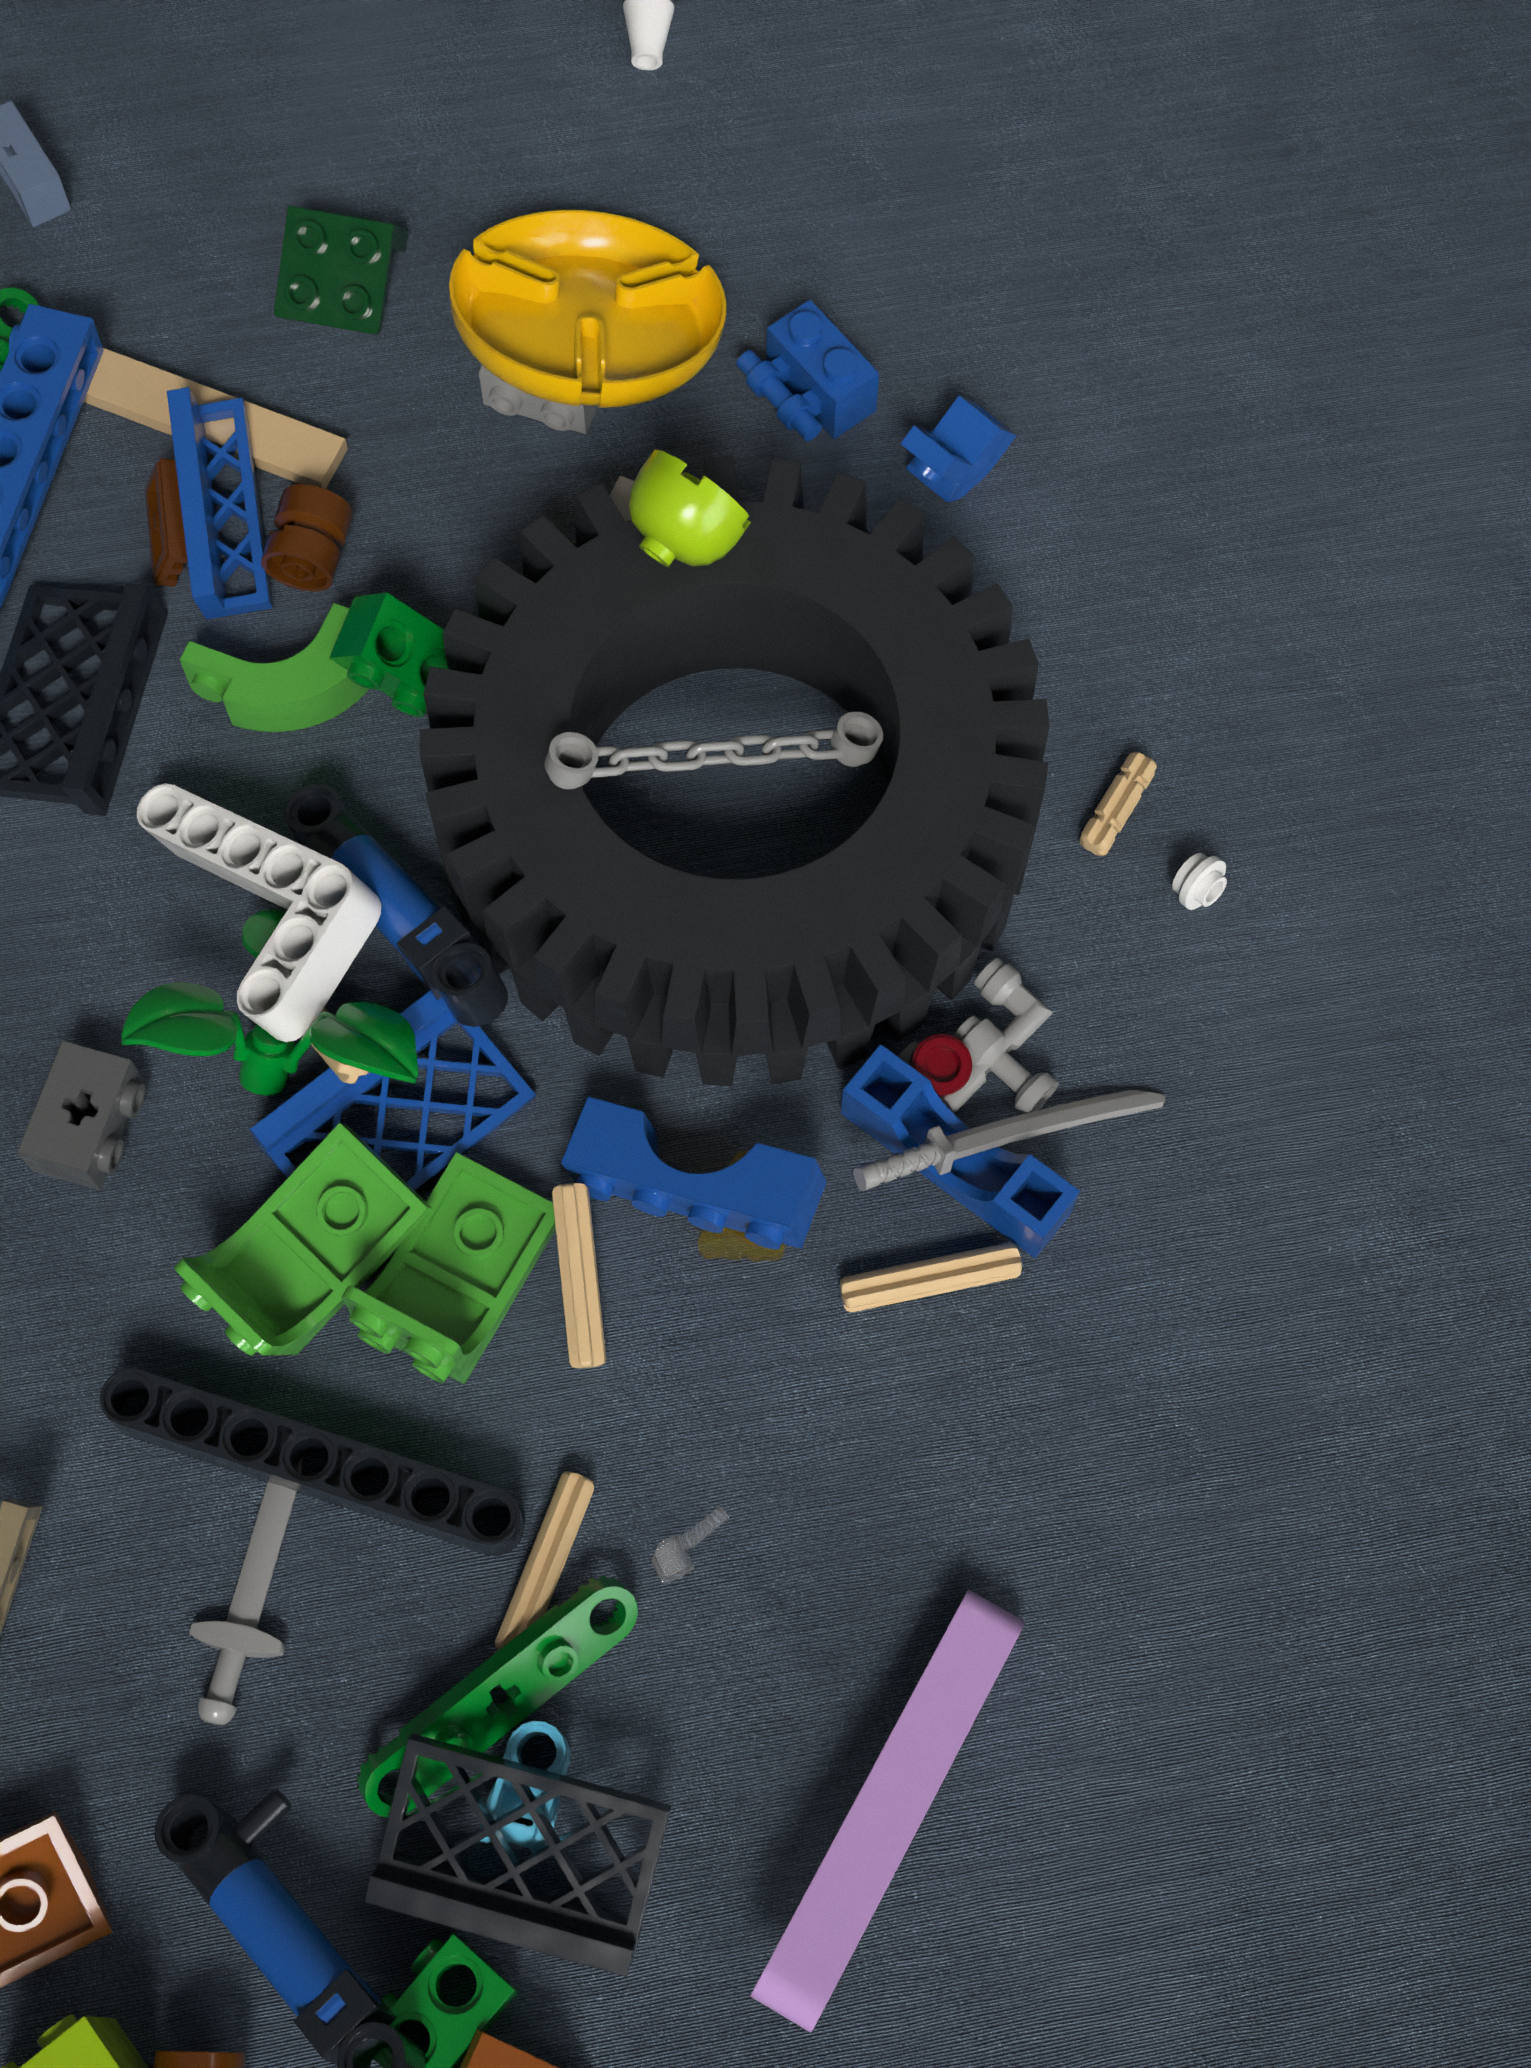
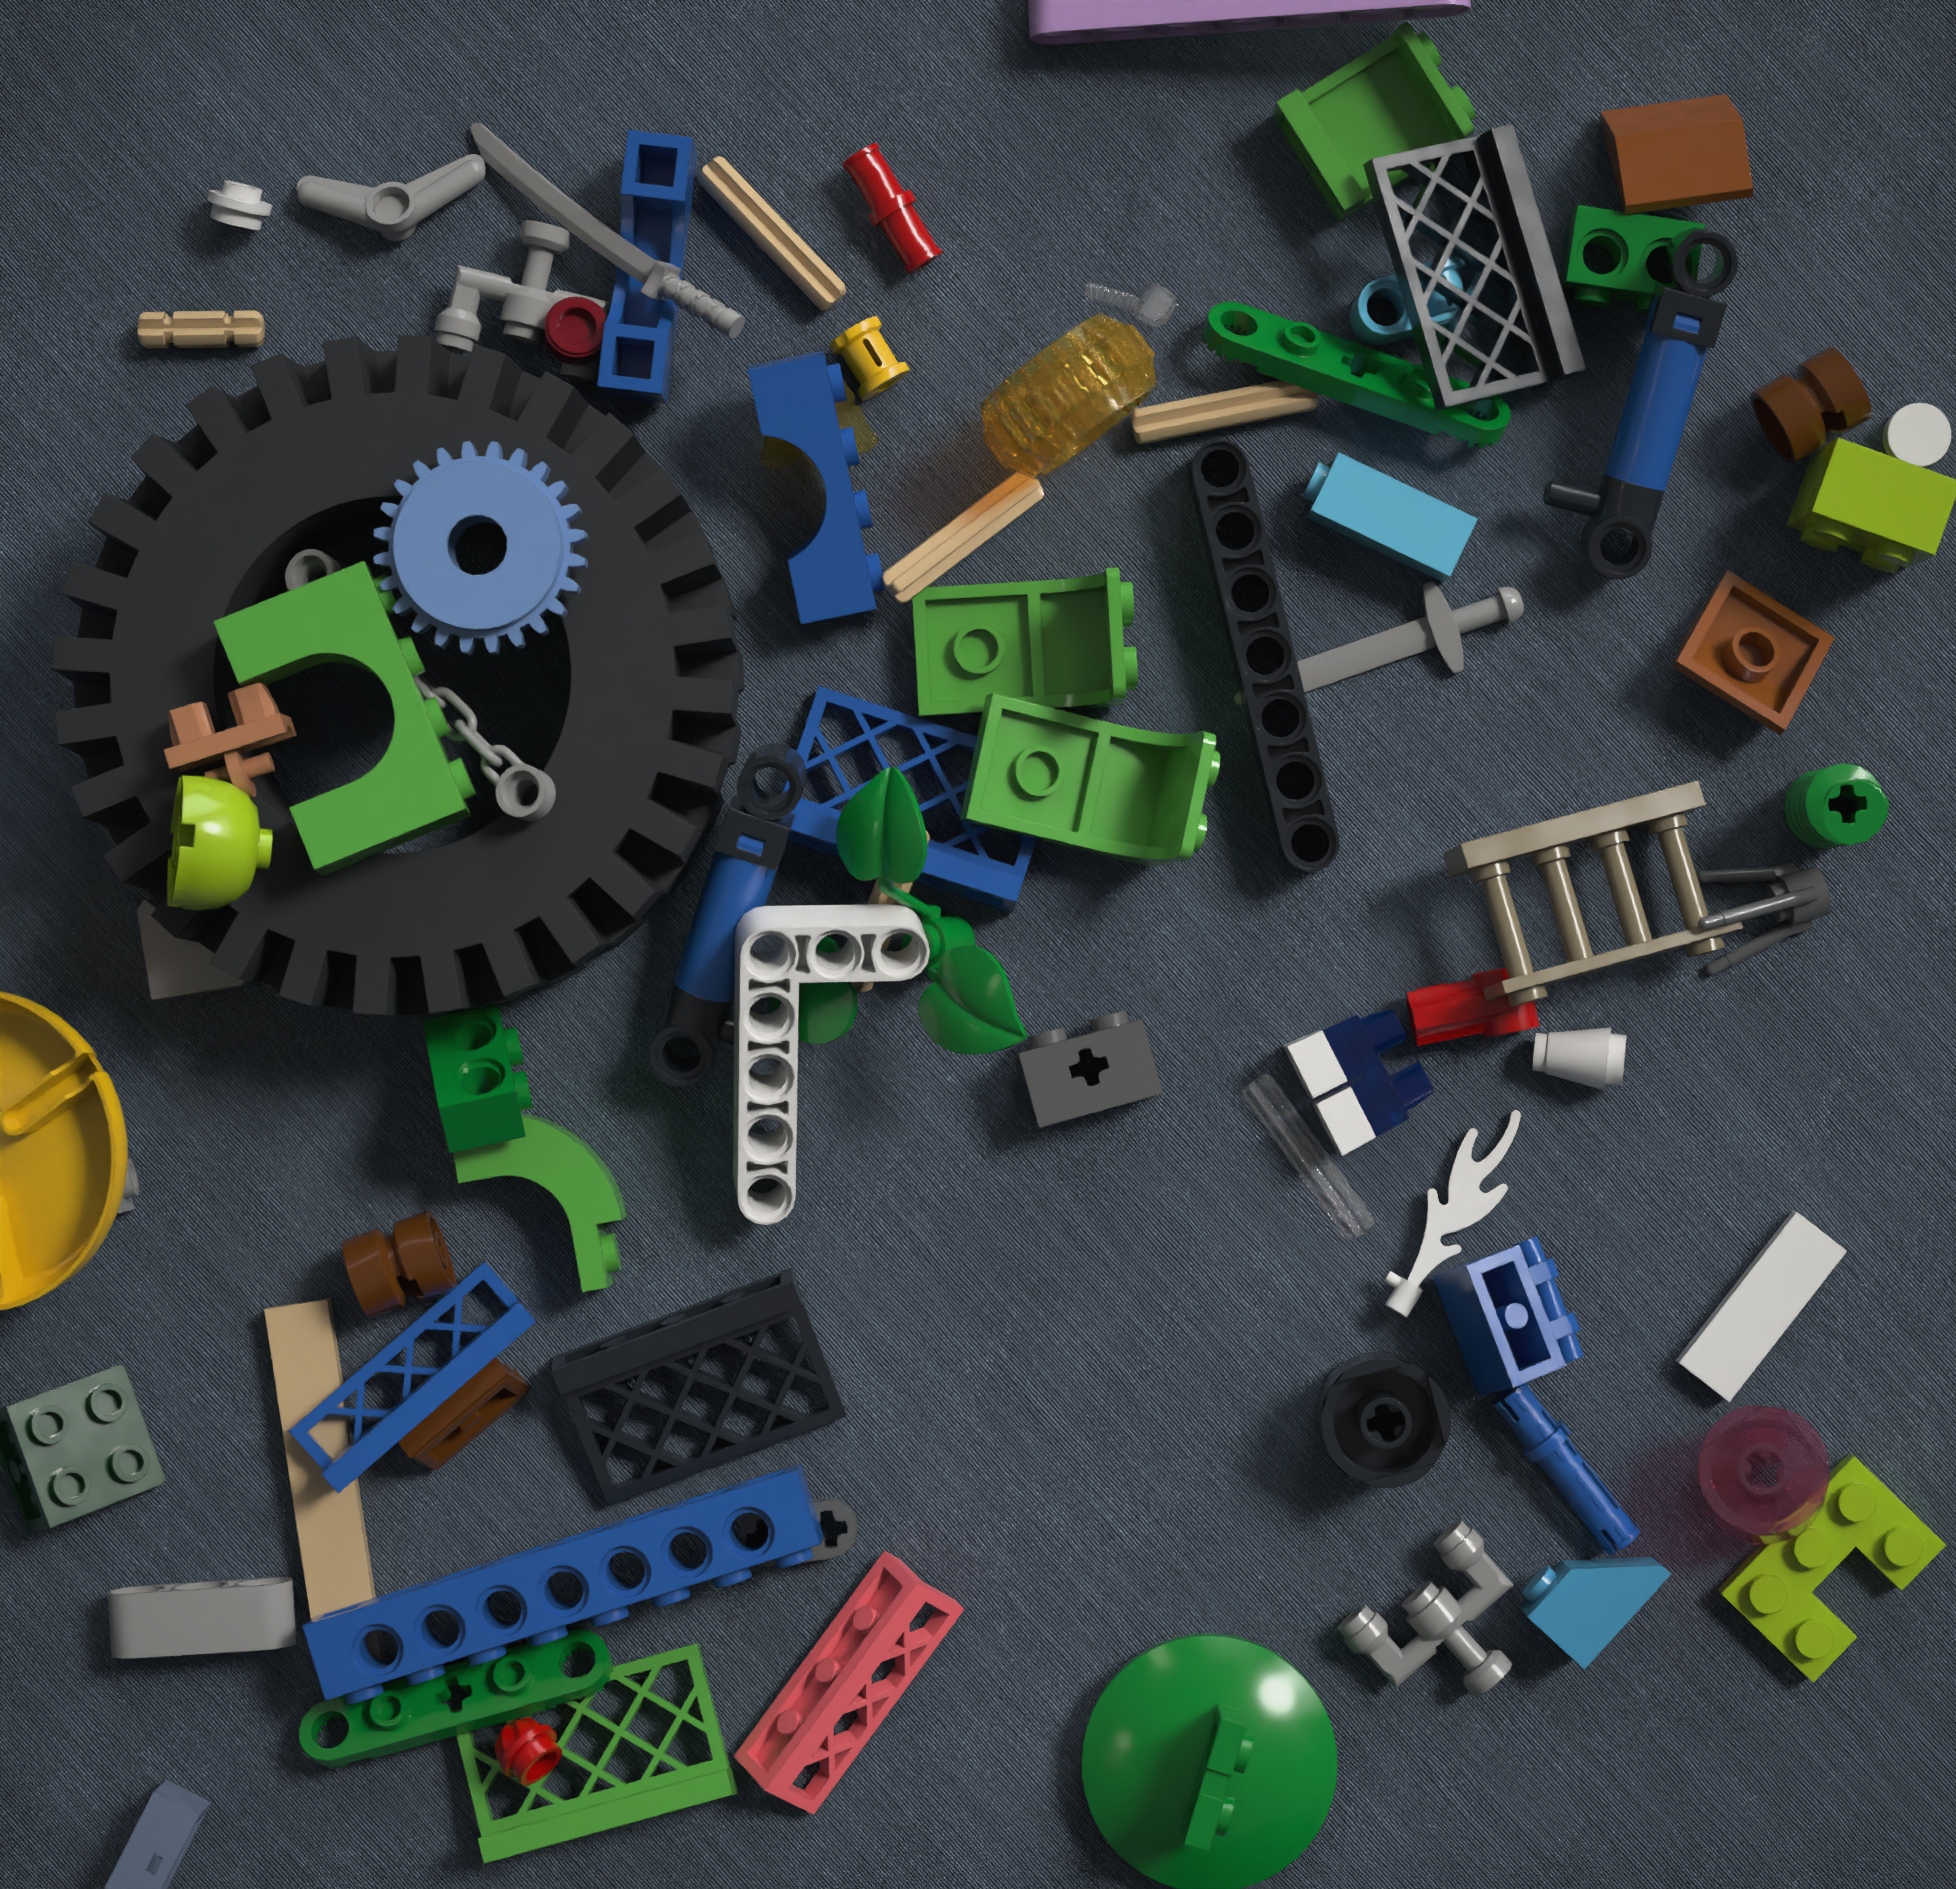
camera: 120 degrees left, 20 degrees up
(158, 281) = (201, 1617): none -> light grey beam
(357, 1646) = (1388, 516): none -> medium azure brick
(629, 1417) = (1068, 396): none -> clear yellow gear
(637, 690) = (349, 623): none -> bright green arch
(715, 1858) = (1369, 110): none -> bright green panel
(755, 599) = (257, 727): none -> nougat hips
(775, 1302) = (869, 358): none -> yellow bush
(787, 881) = (441, 510): none -> medium blue gear
(890, 1385) = (892, 208): none -> red pin
(1131, 992) = (392, 206): none -> light grey piece

